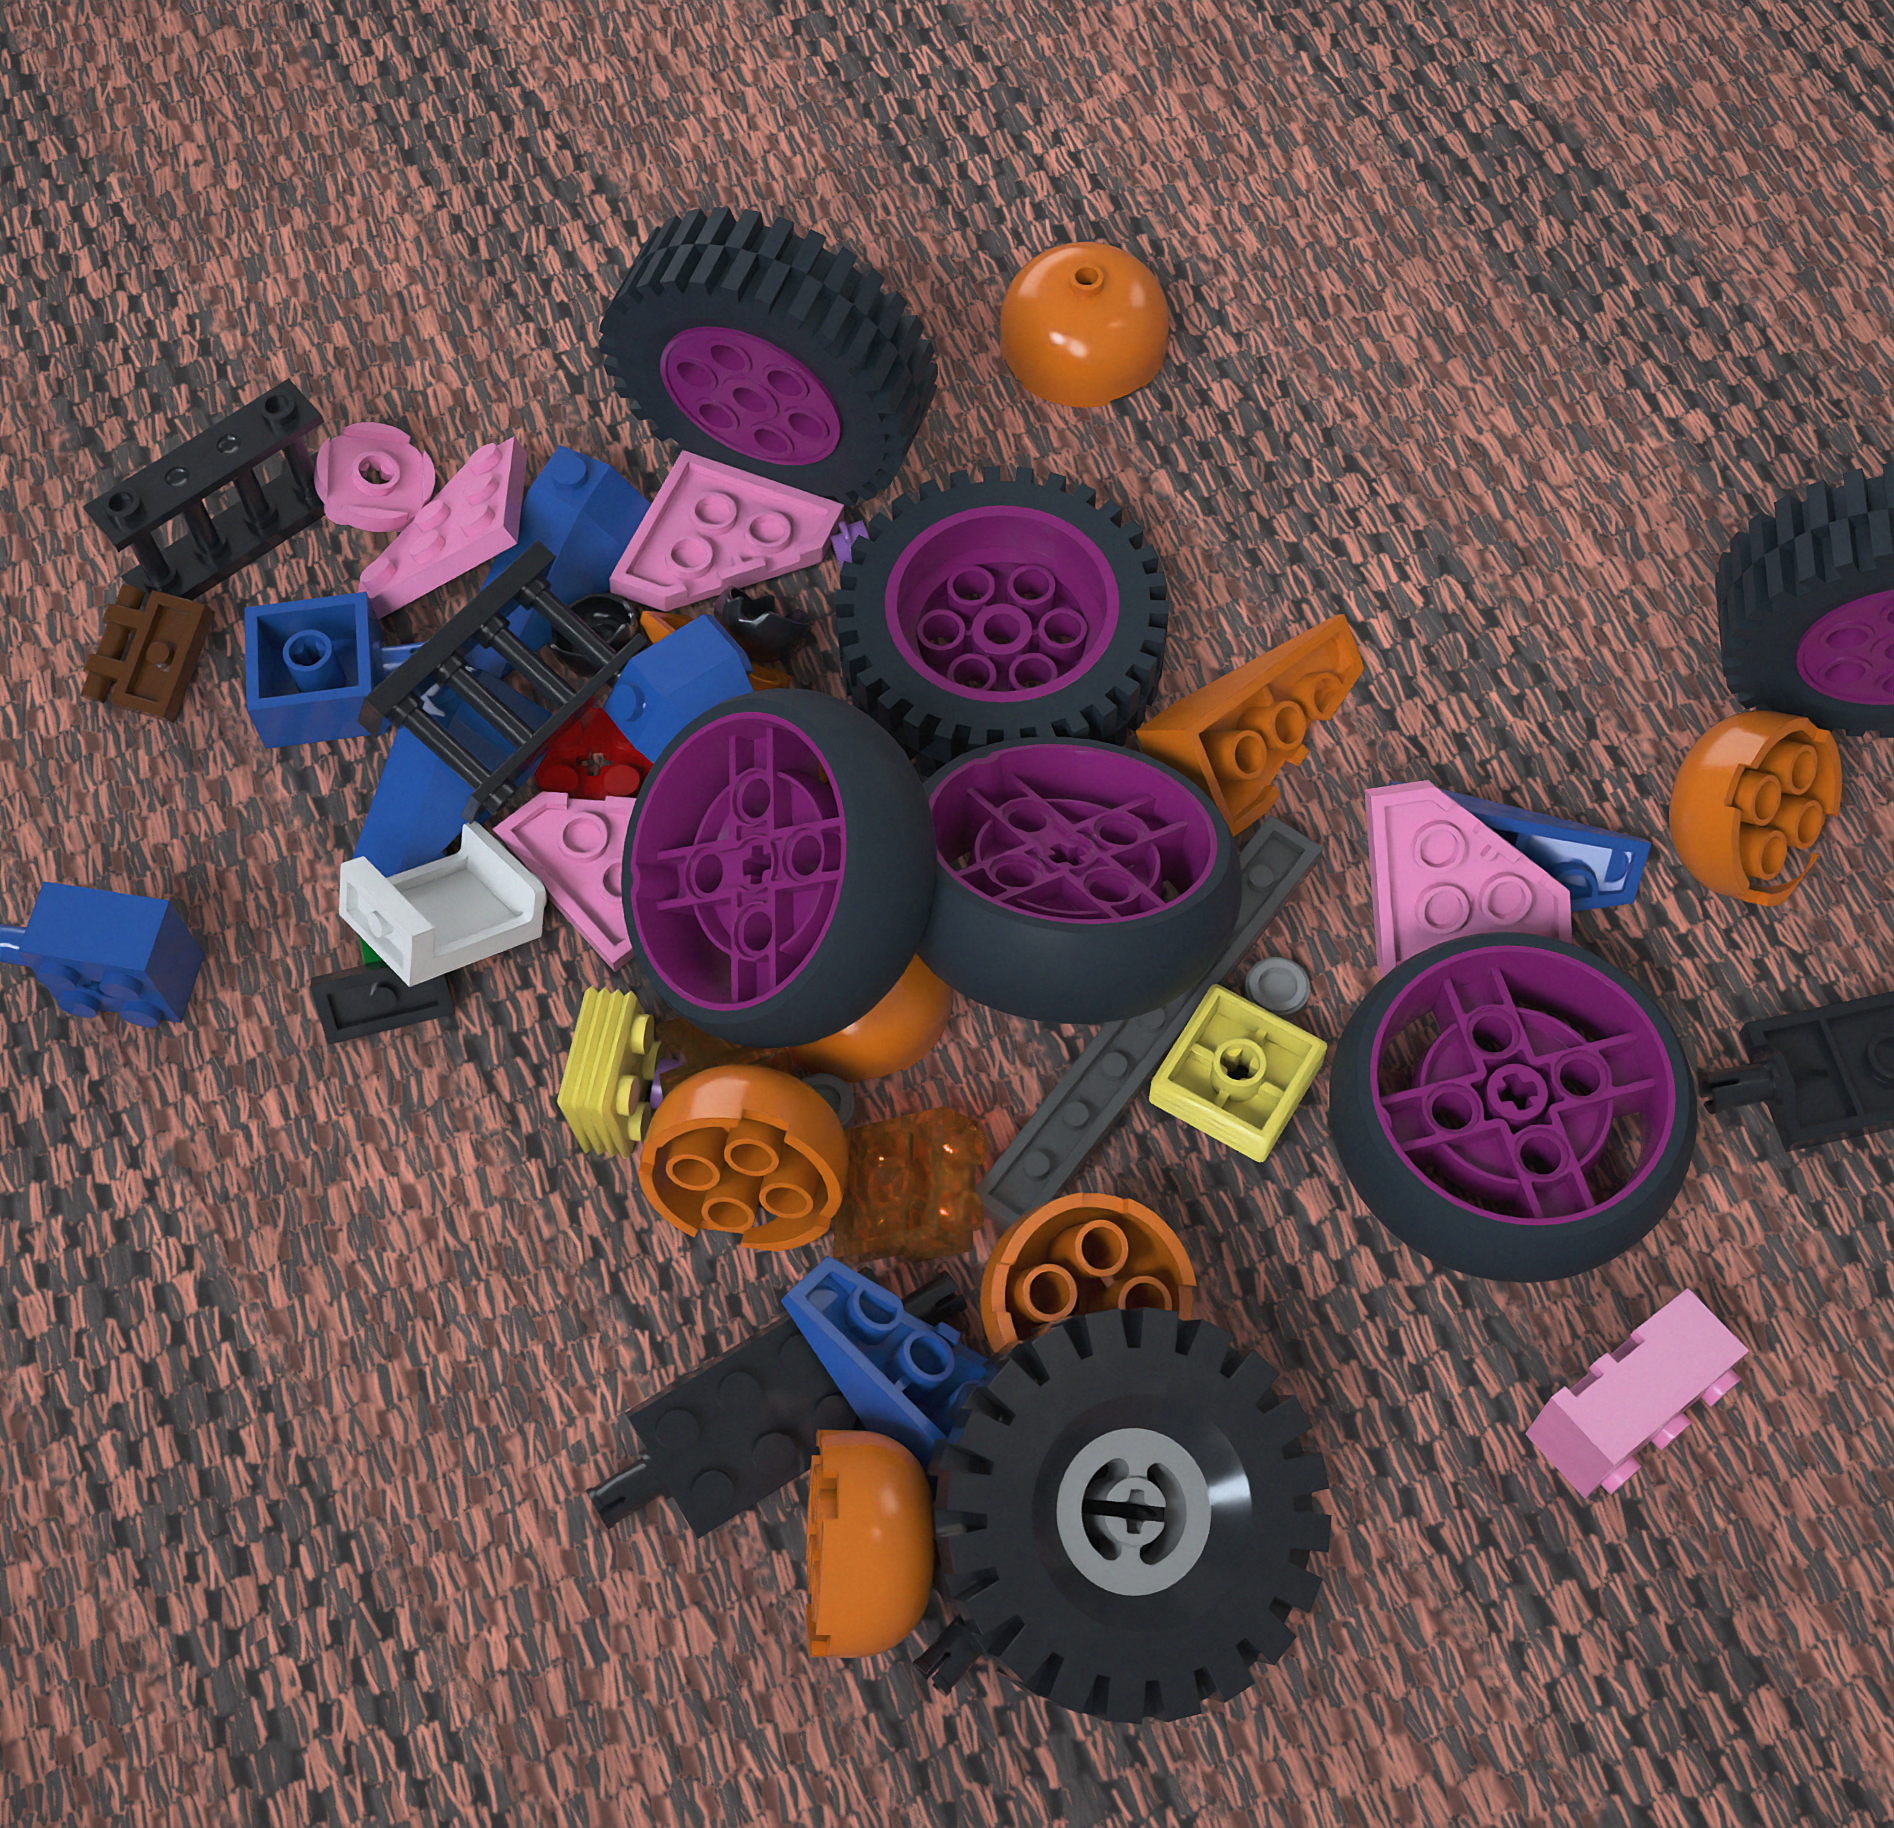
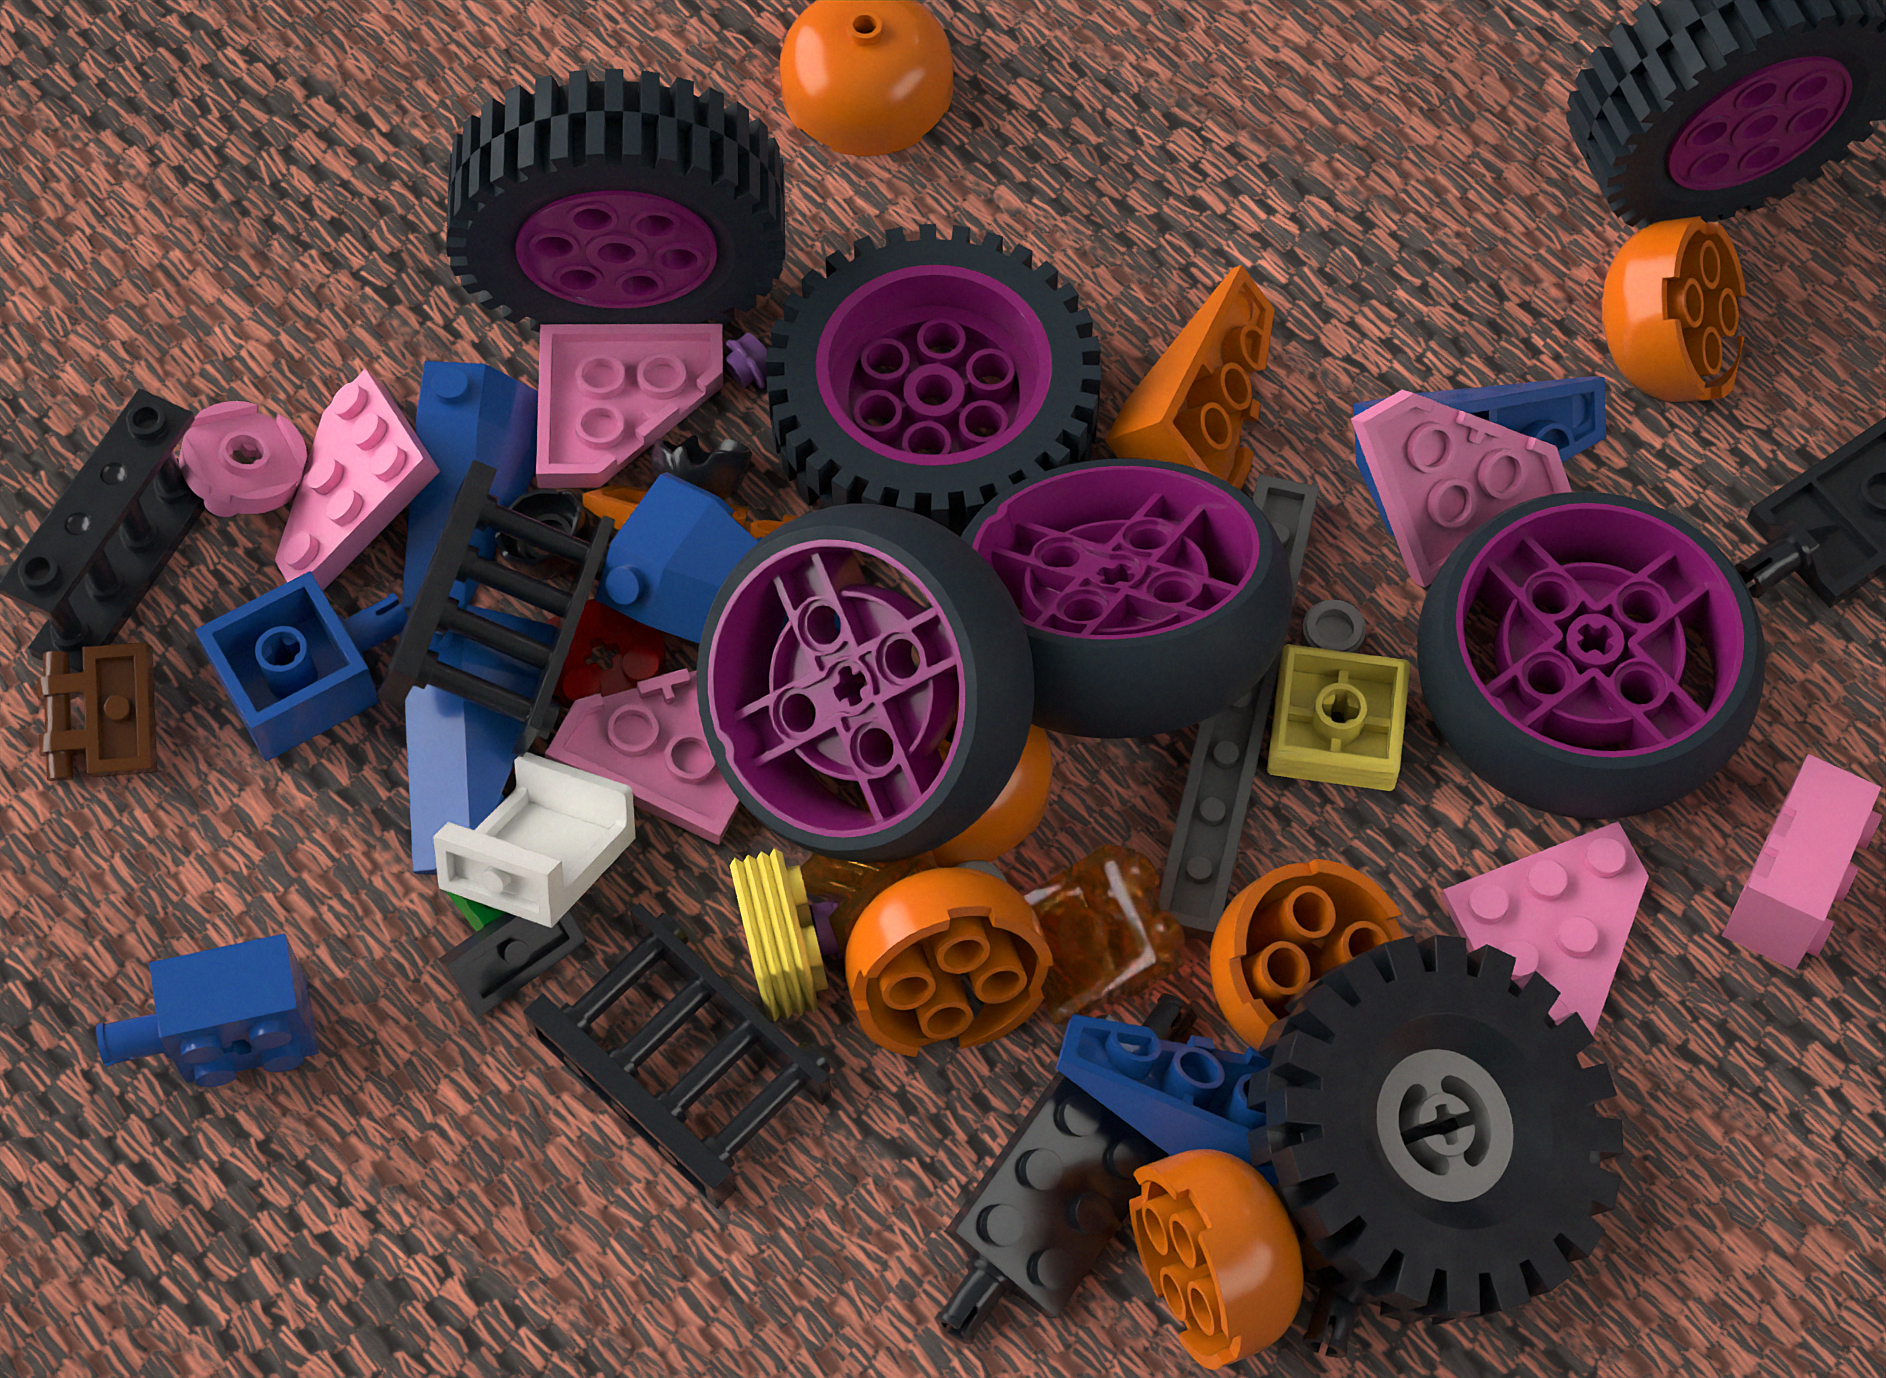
camera: 25 degrees left, 0 degrees up
(435, 1198) = (661, 1116): none -> black fence
(1362, 1355) = (1558, 915): none -> bright pink plate

